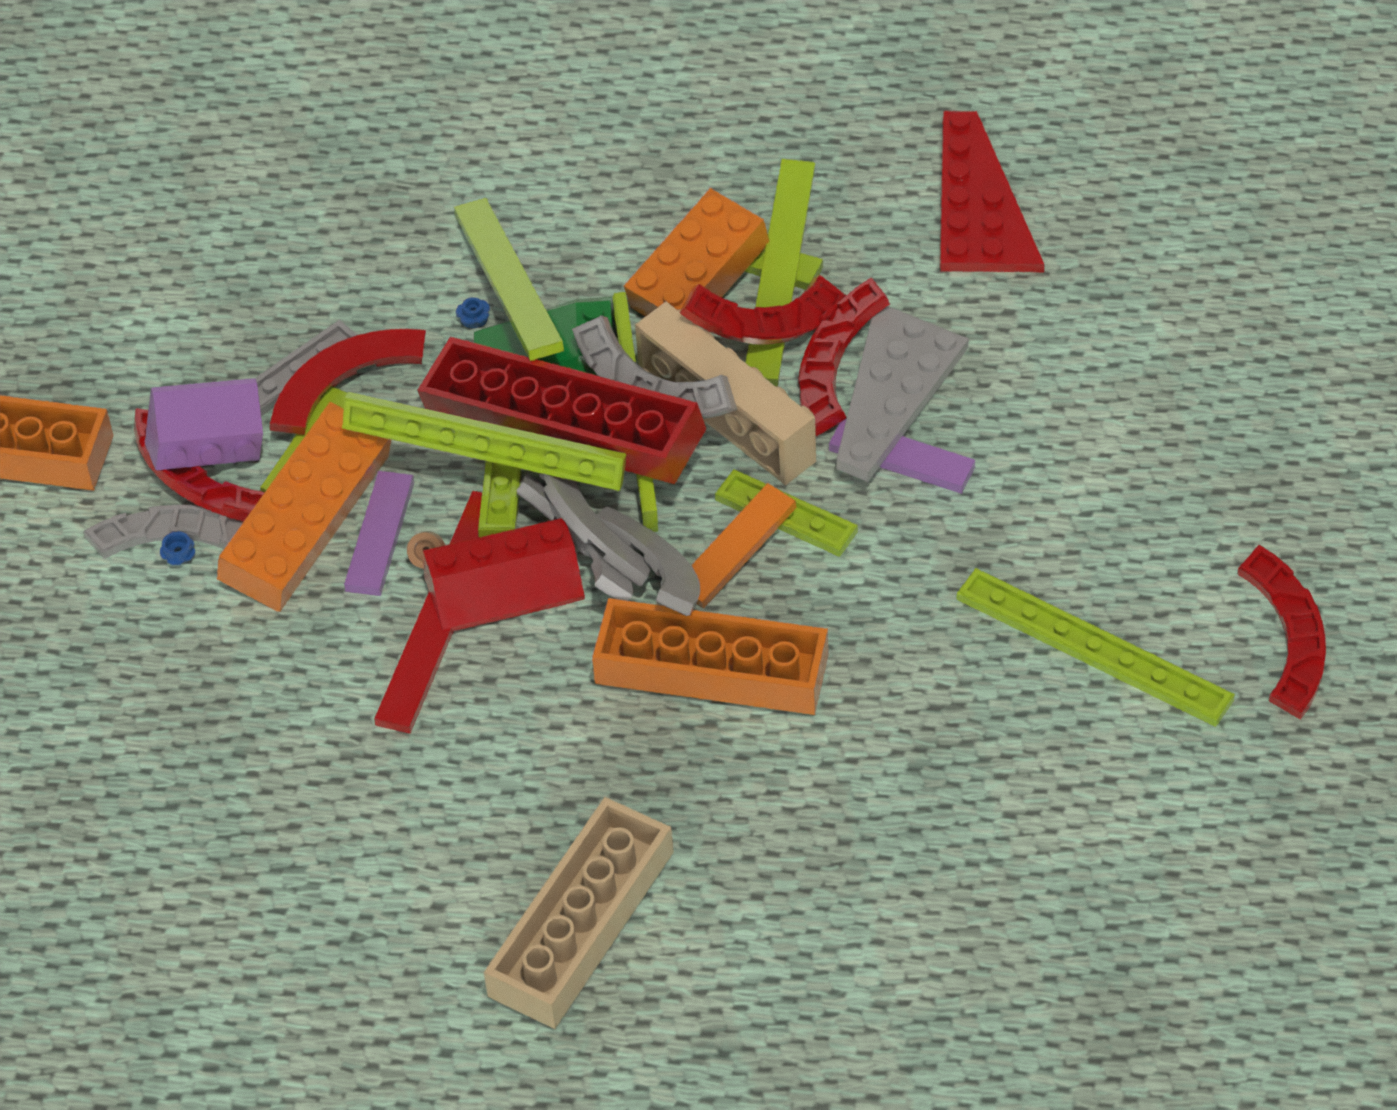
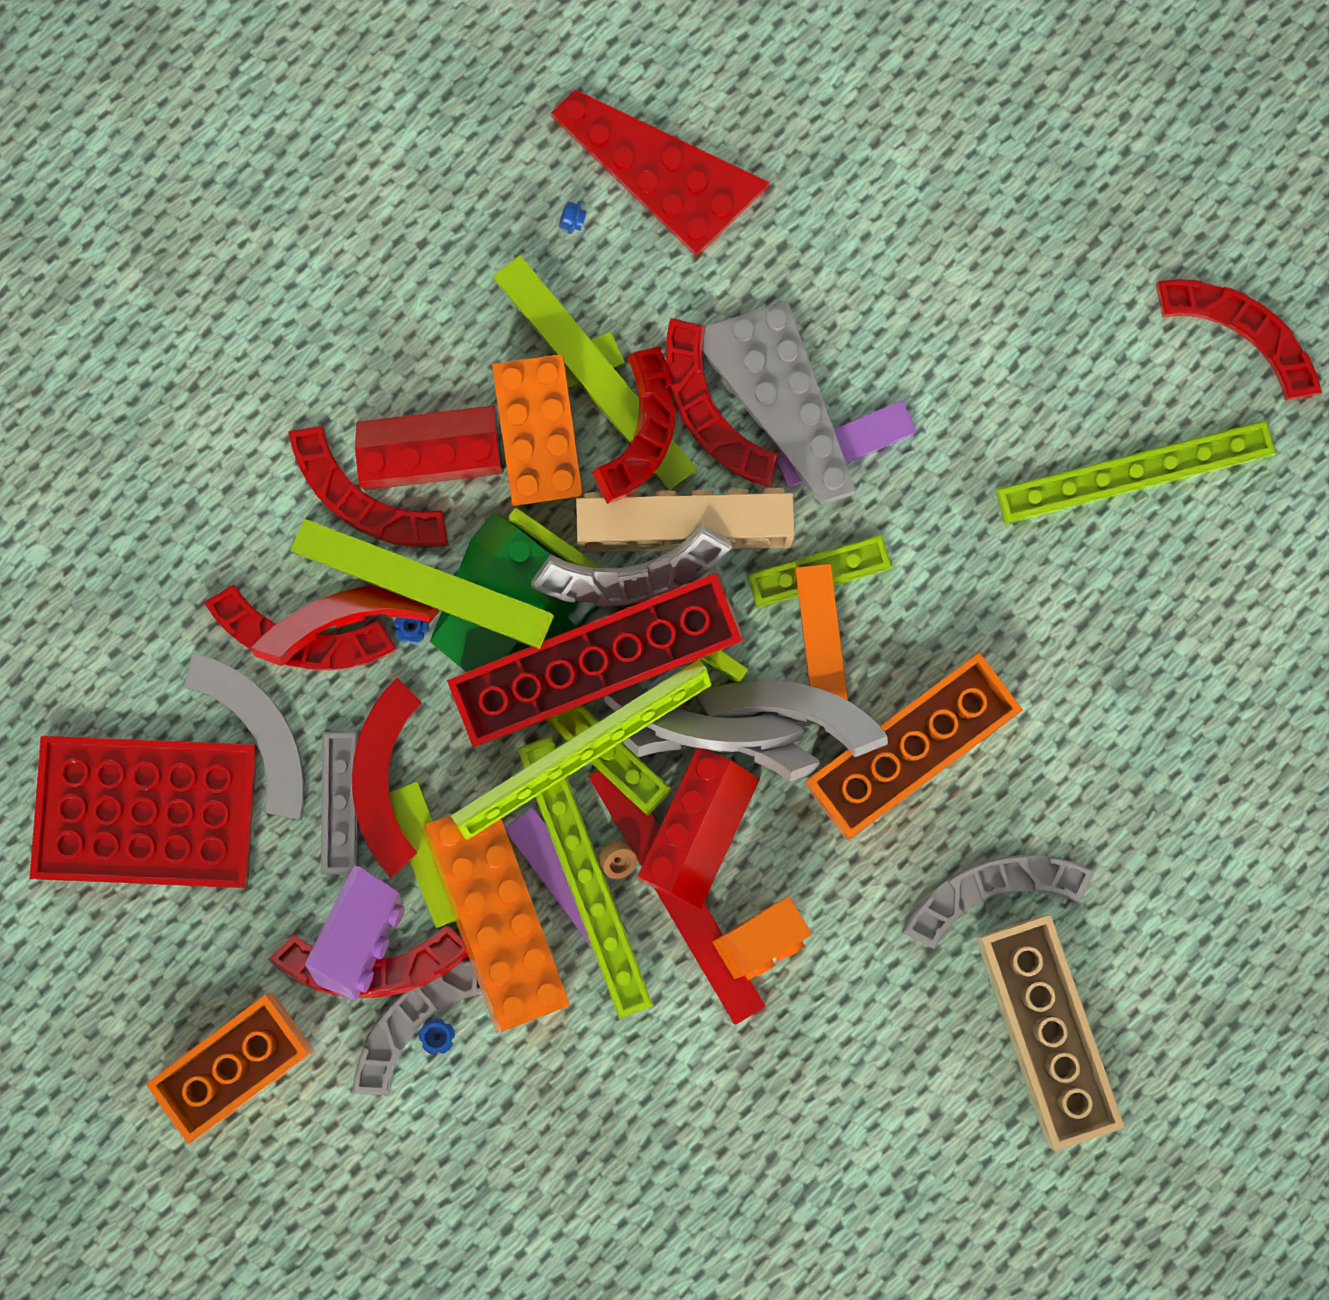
camera: 50 degrees left, 30 degrees up
(173, 268) = (143, 812): none -> red plate
(307, 293) = (266, 725): none -> light grey tile
(385, 551) = (590, 889): none -> lime tile
(387, 265) = (324, 653): none -> red tile
(435, 260) = (337, 609): none -> red tile
(456, 665) = (758, 940): none -> orange brick
(528, 224) = (354, 506): none -> red tile
(604, 220) = (427, 448): none -> red slope
(662, 797) = (990, 880): none -> light grey tile
(881, 177) = (572, 217): none -> blue plate

